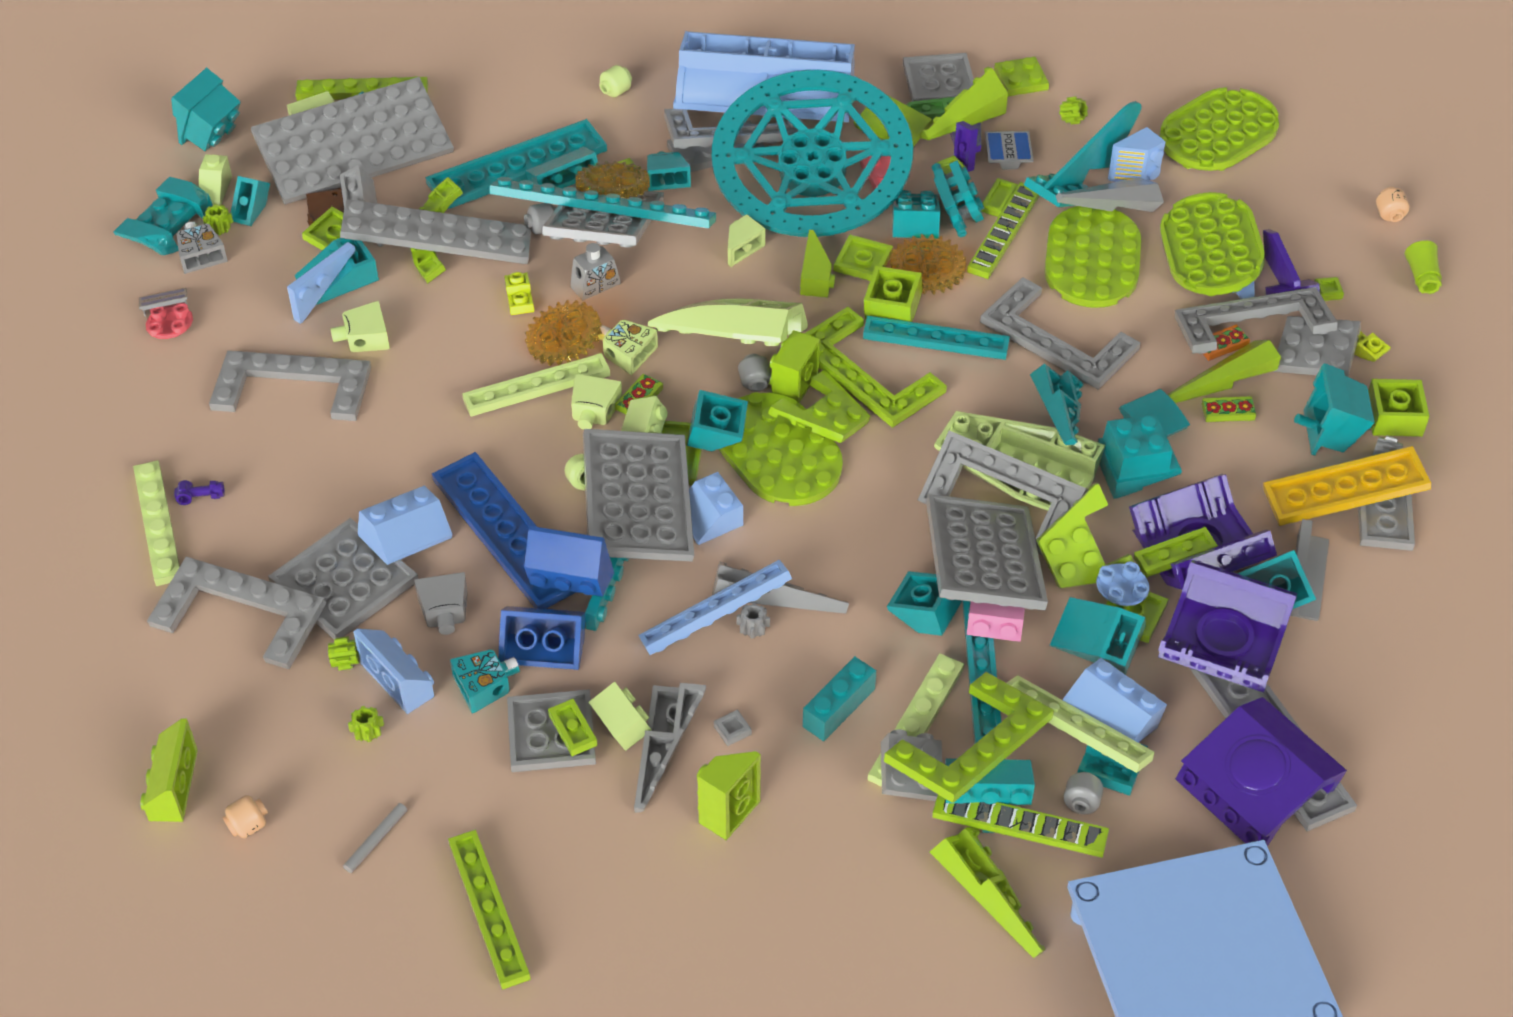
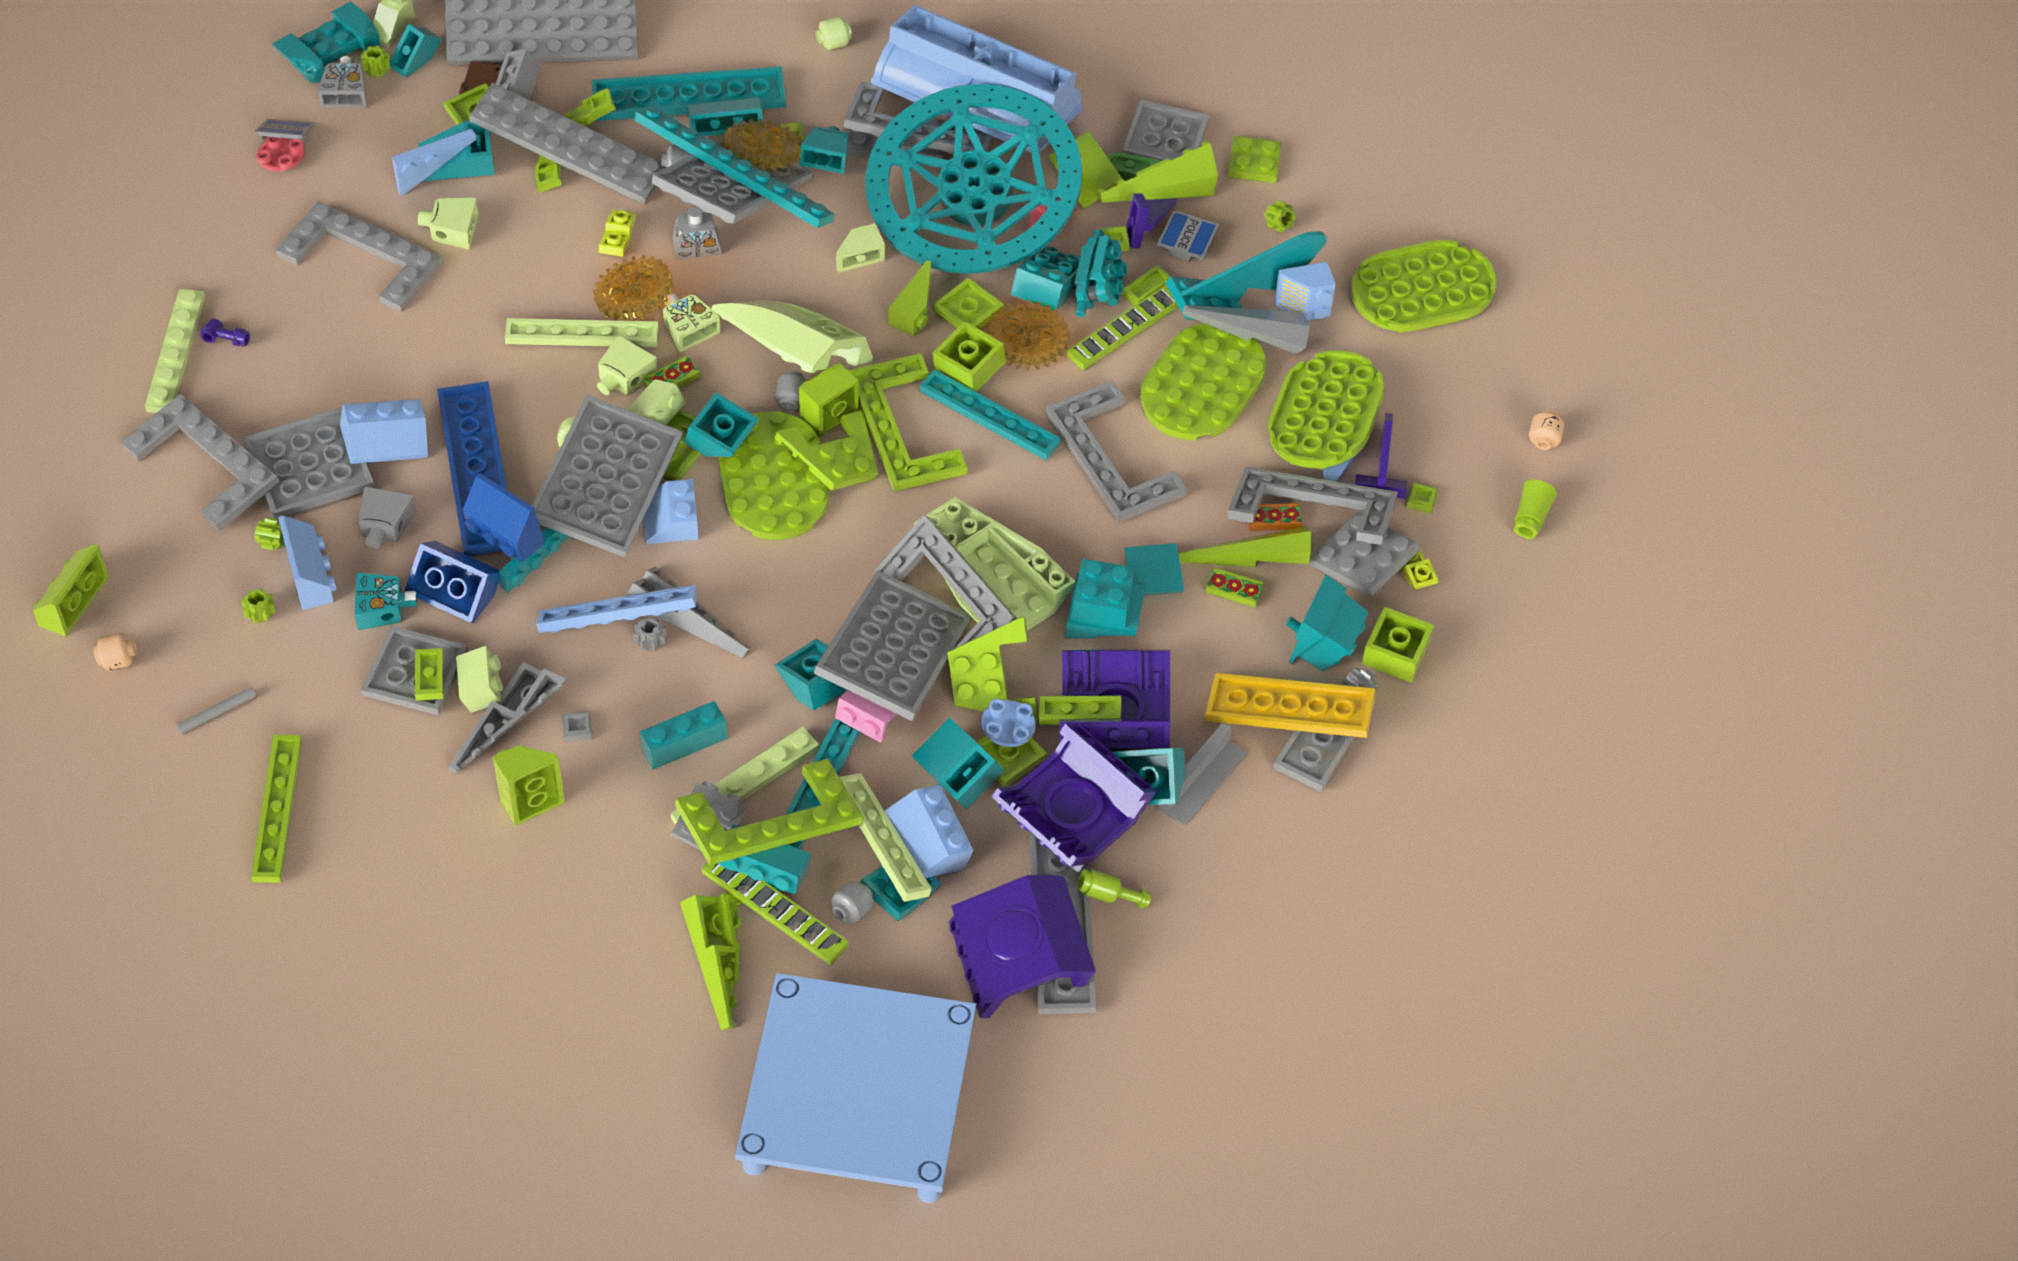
camera: 20 degrees right, 5 degrees up
(1060, 399) = (1064, 521): teal wedge -> none
(1301, 695) = (1108, 887): none -> lime piece

